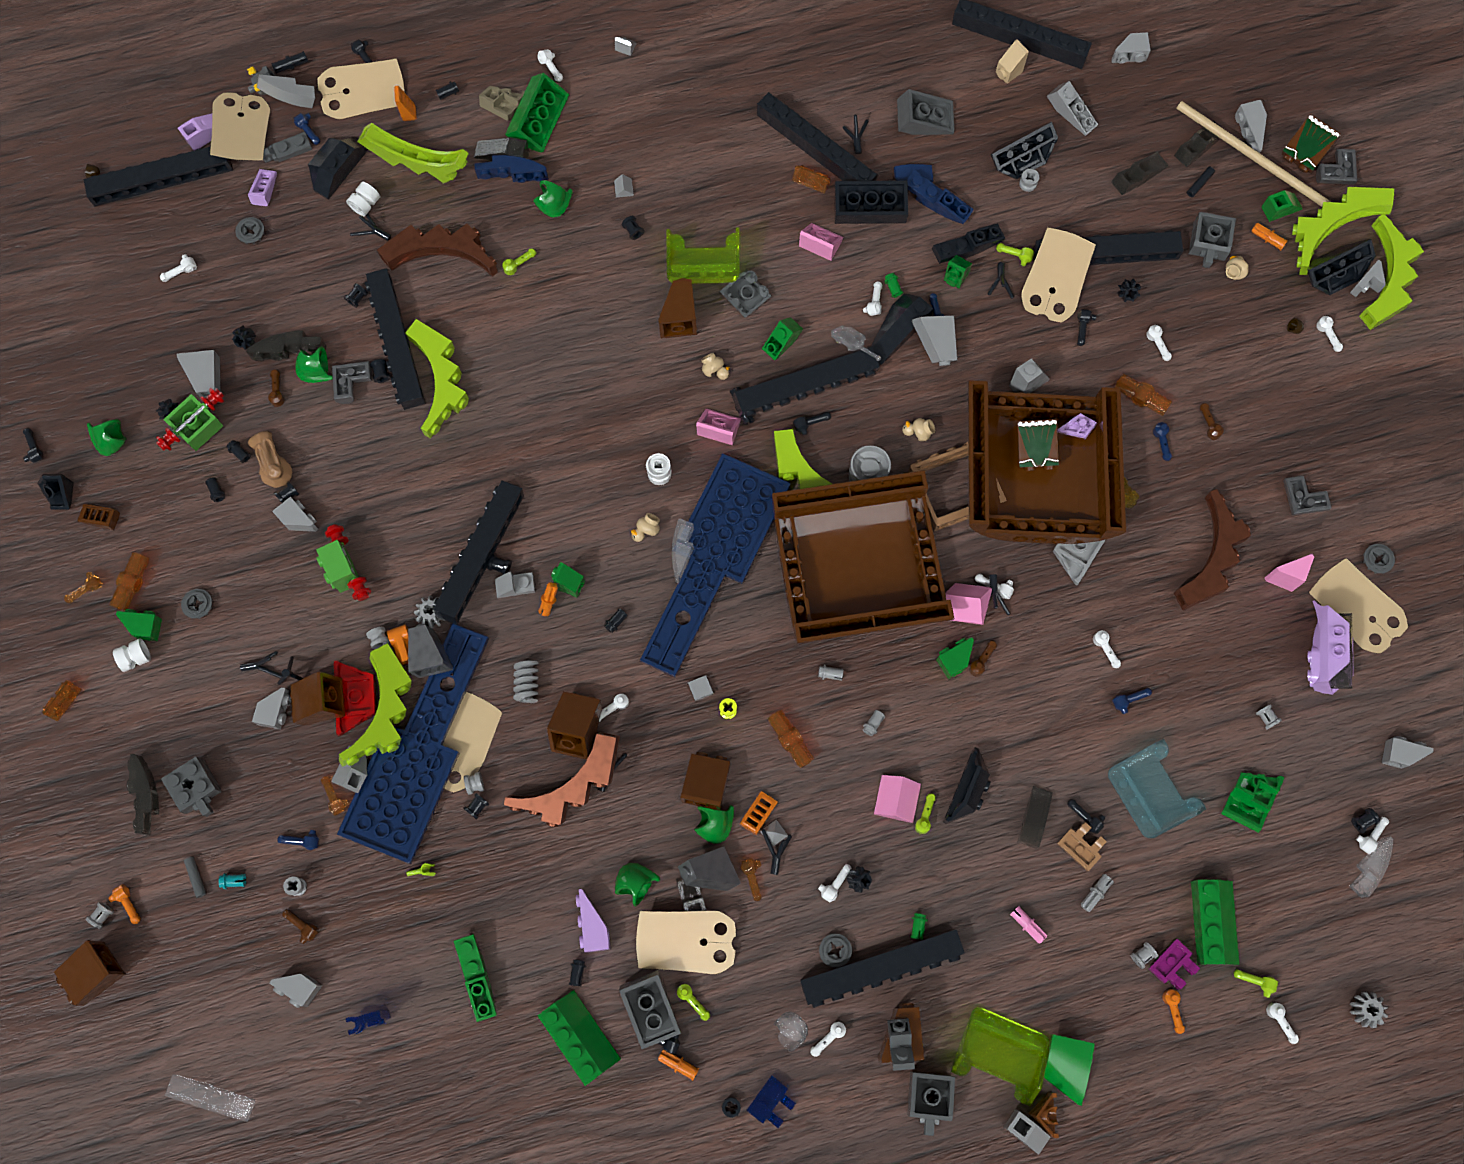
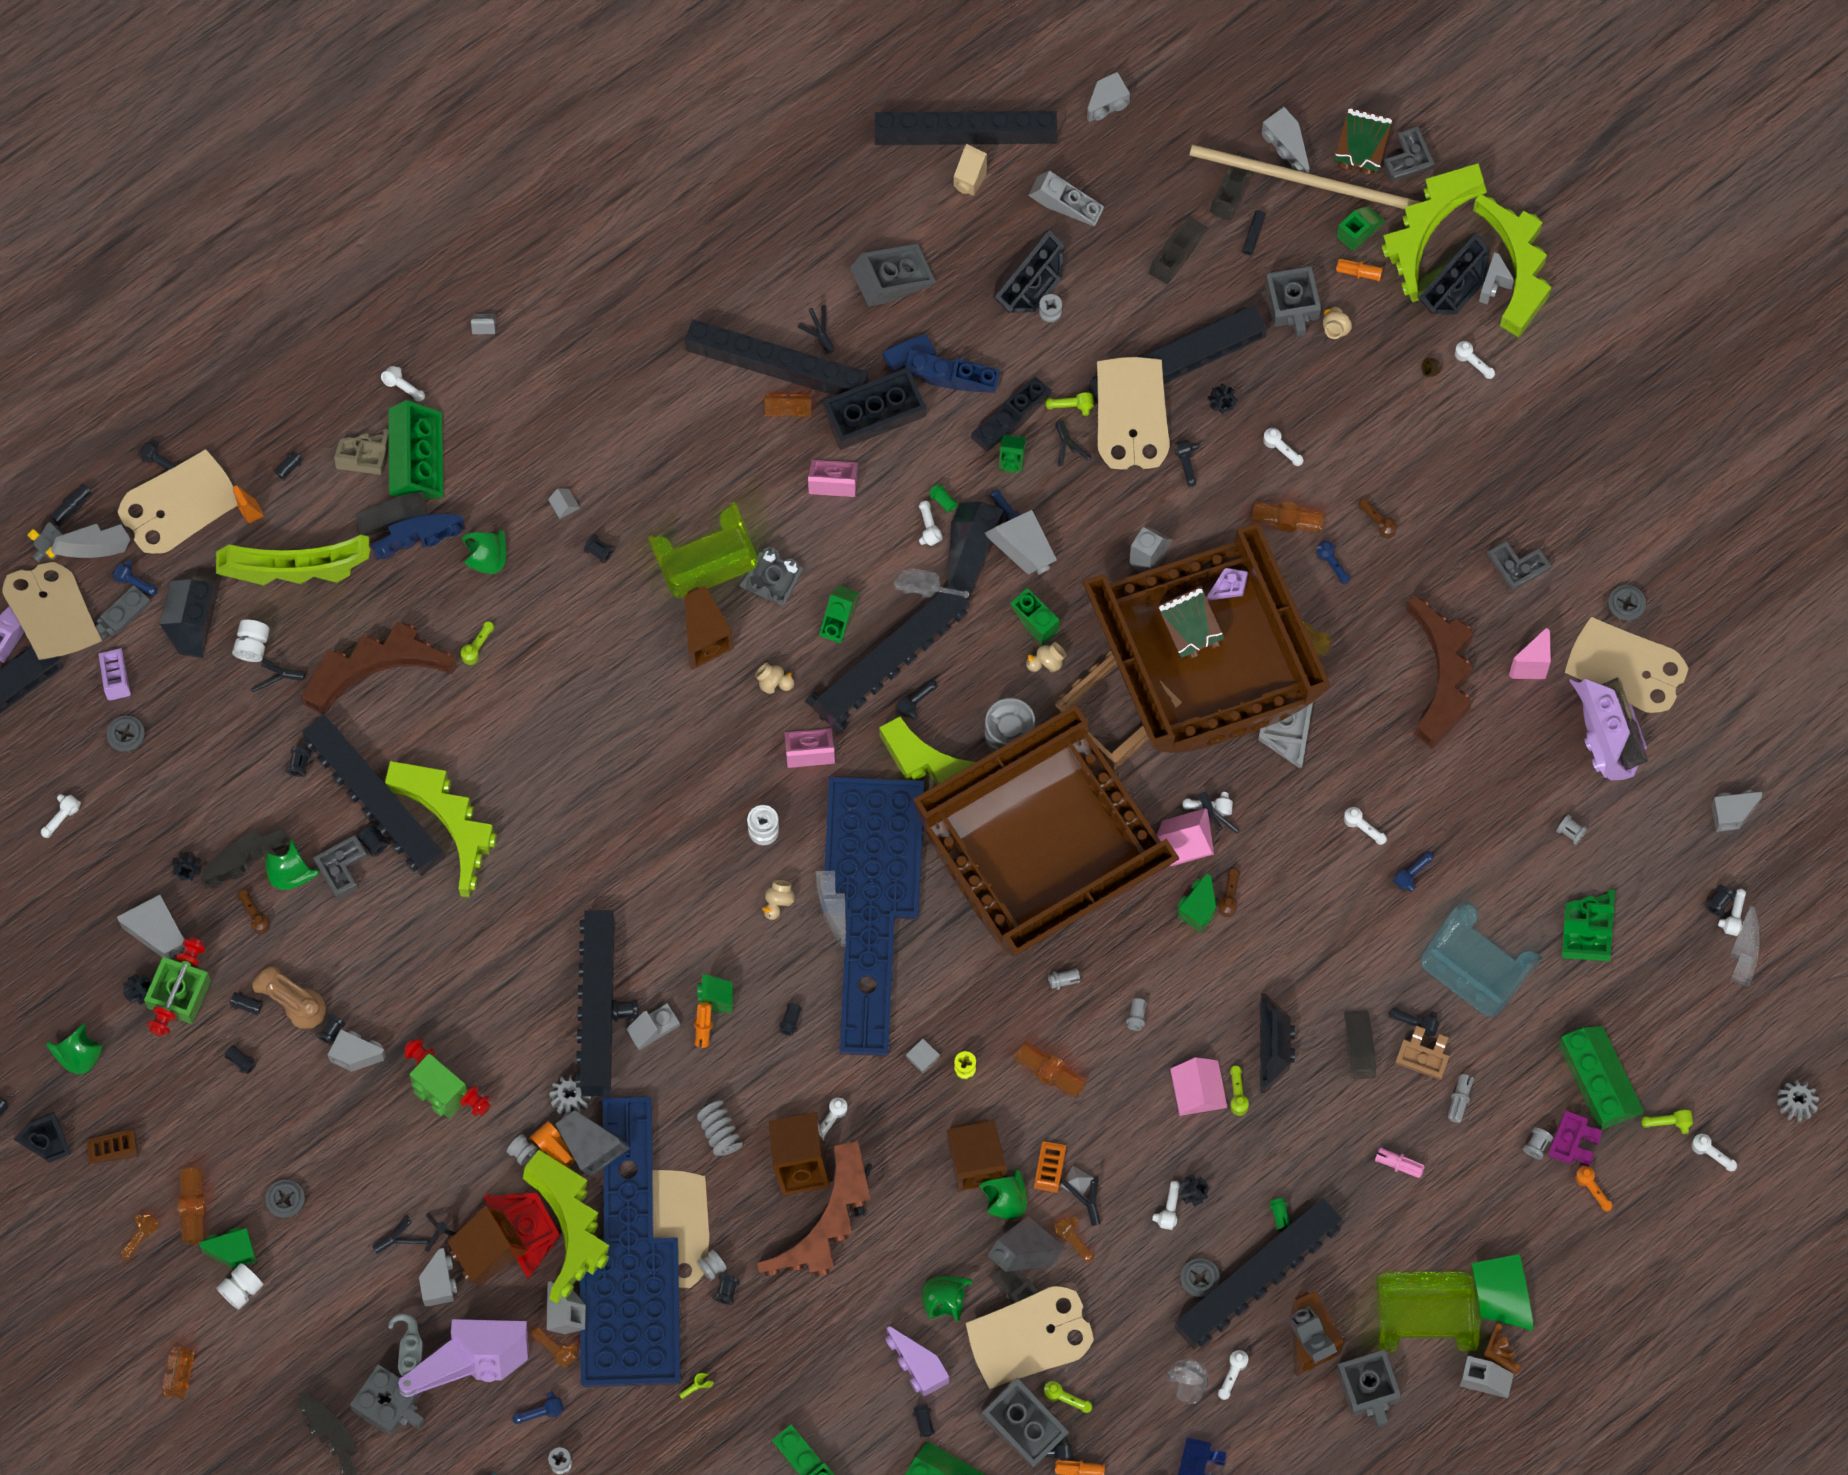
camera: 25 degrees left, 5 degrees down
(268, 774) = (477, 1348): none -> lavender slope
(924, 395) = (1035, 616): none -> green slope

